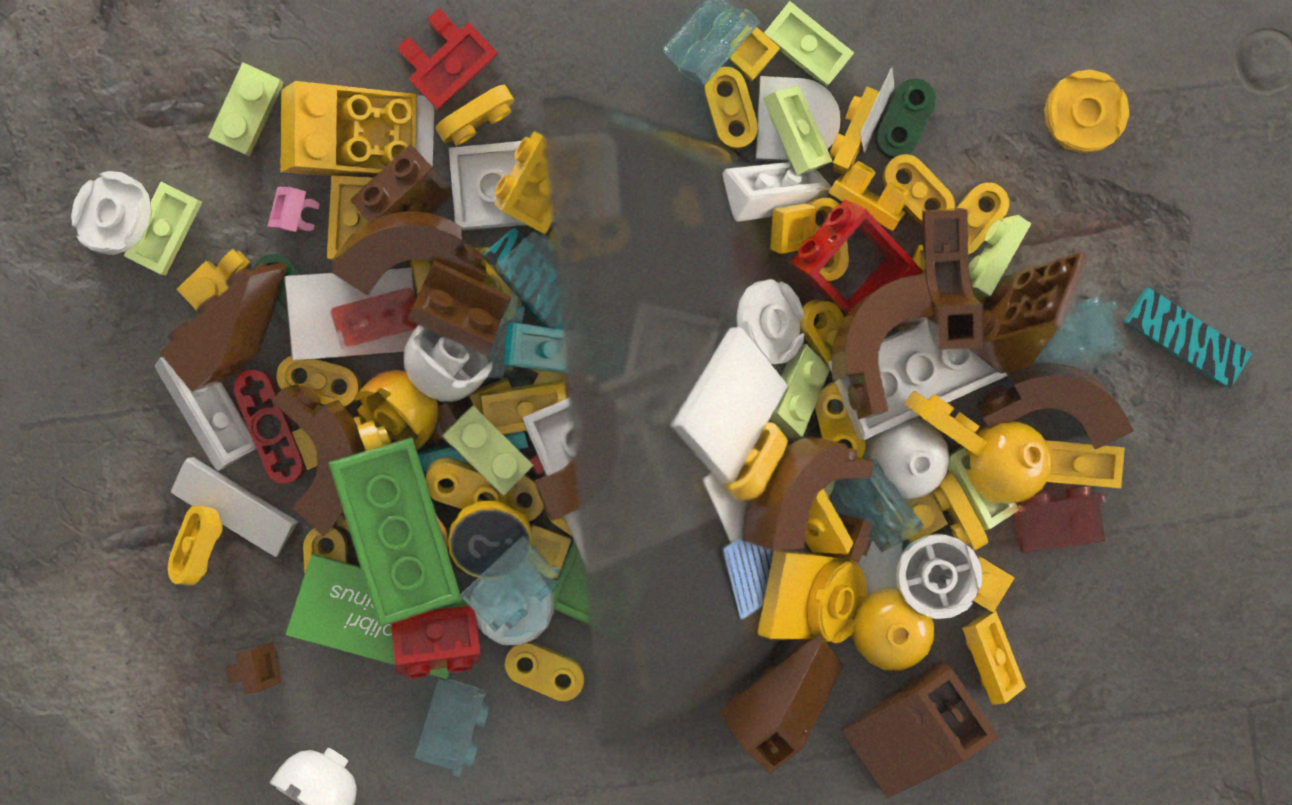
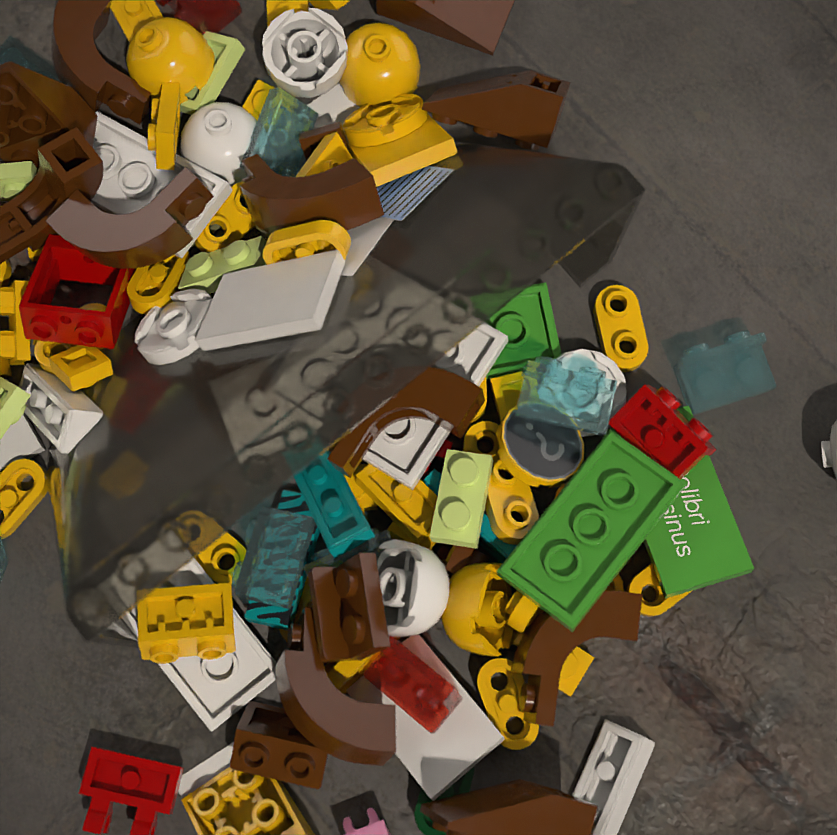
camera: 125 degrees left, 10 degrees down
(194, 545) = (735, 713): yellow plate -> none
(236, 506) = (675, 704): white slope -> none
(252, 420) = (607, 697): red beam -> none
(255, 668) = (803, 579): reddish brown tile -> none
(343, 215) = (340, 783): yellow plate -> none
(462, 123) = (147, 718): yellow plate -> none
(967, 526) = (240, 73): yellow plate -> none

